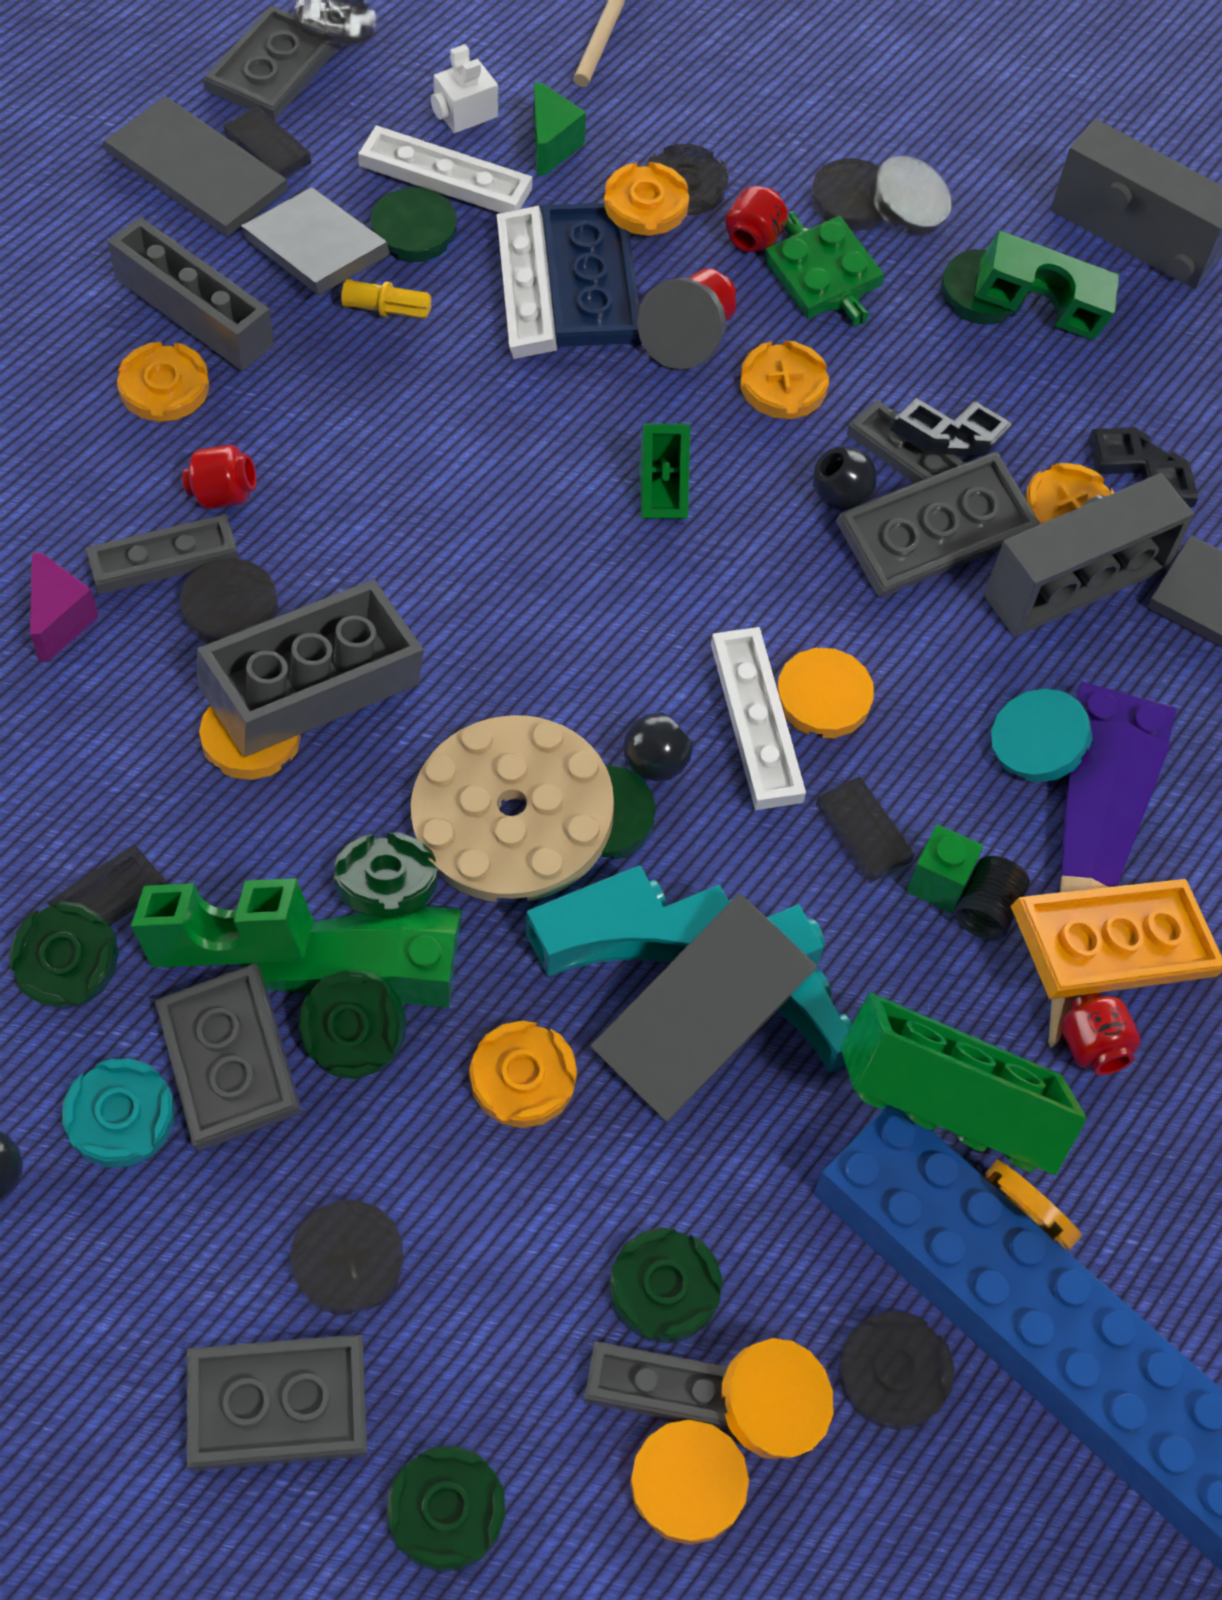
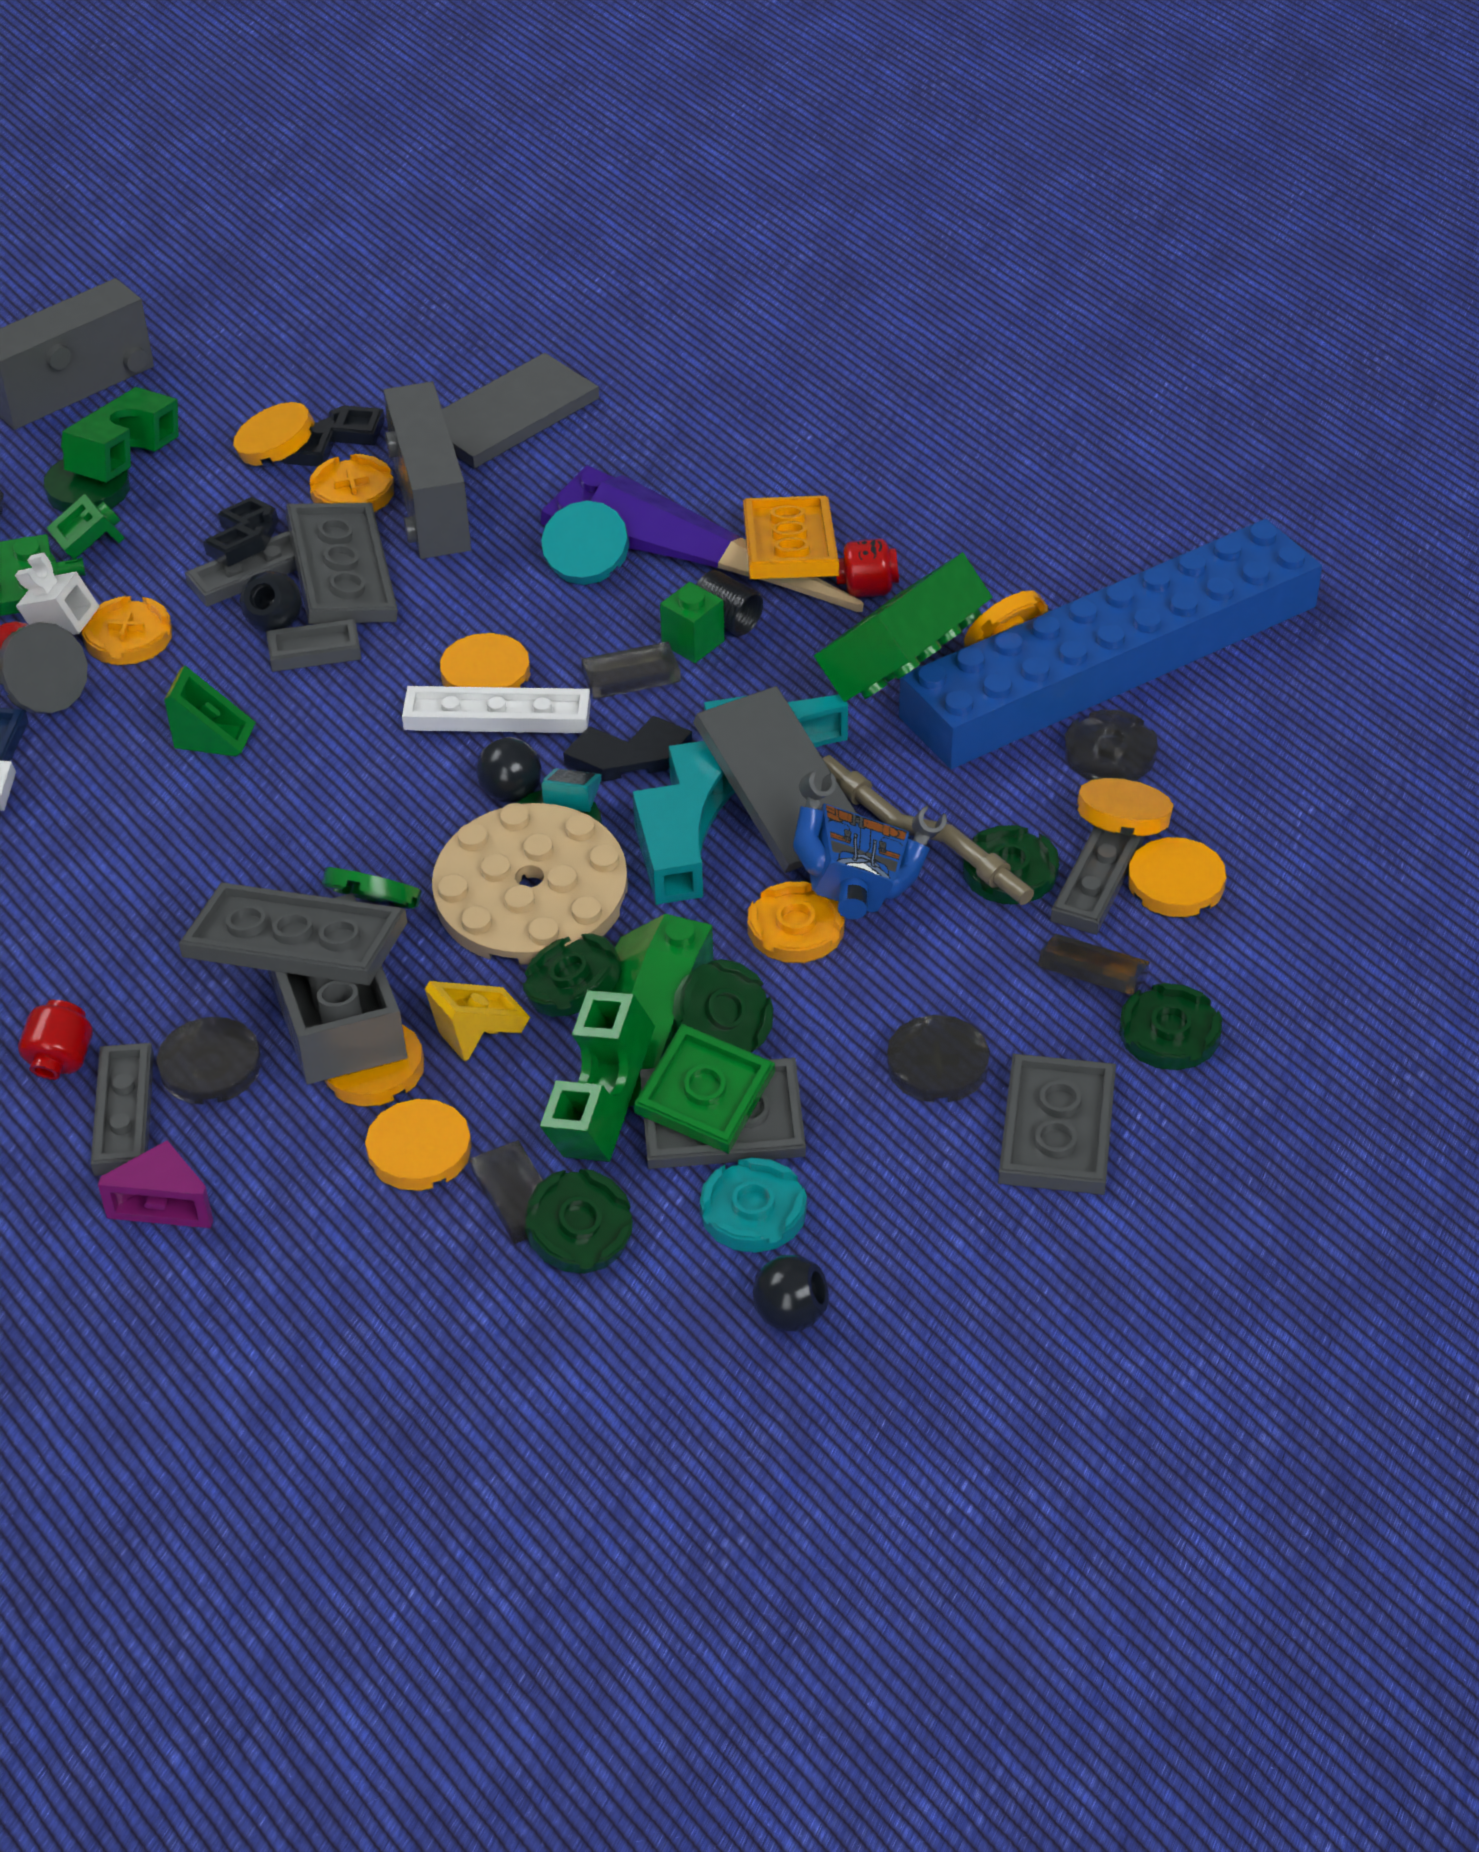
camera: 70 degrees left, 15 degrees down
(151, 797) = (418, 1144): none -> light orange tile
(234, 1028) = (704, 1088): none -> green tile
(311, 798) = (469, 1010): none -> yellow slope
(343, 614) = (294, 933): none -> dark grey tile
(451, 667) = (371, 887): none -> green tile
(516, 1403) = (1093, 964): none -> clear smoke tile
(600, 1110) = (854, 855): none -> blue torso
(626, 1259) = (989, 867): none -> dark tan bar
(647, 809) = (571, 788): none -> teal slope
(722, 842) = (611, 756): none -> black tile
(780, 305) = (55, 598): none -> white brick
(812, 535) = (313, 645): none -> dark grey tile
(912, 299) = (83, 525): none -> green bracket
(1111, 411) = (274, 433): none -> light orange tile

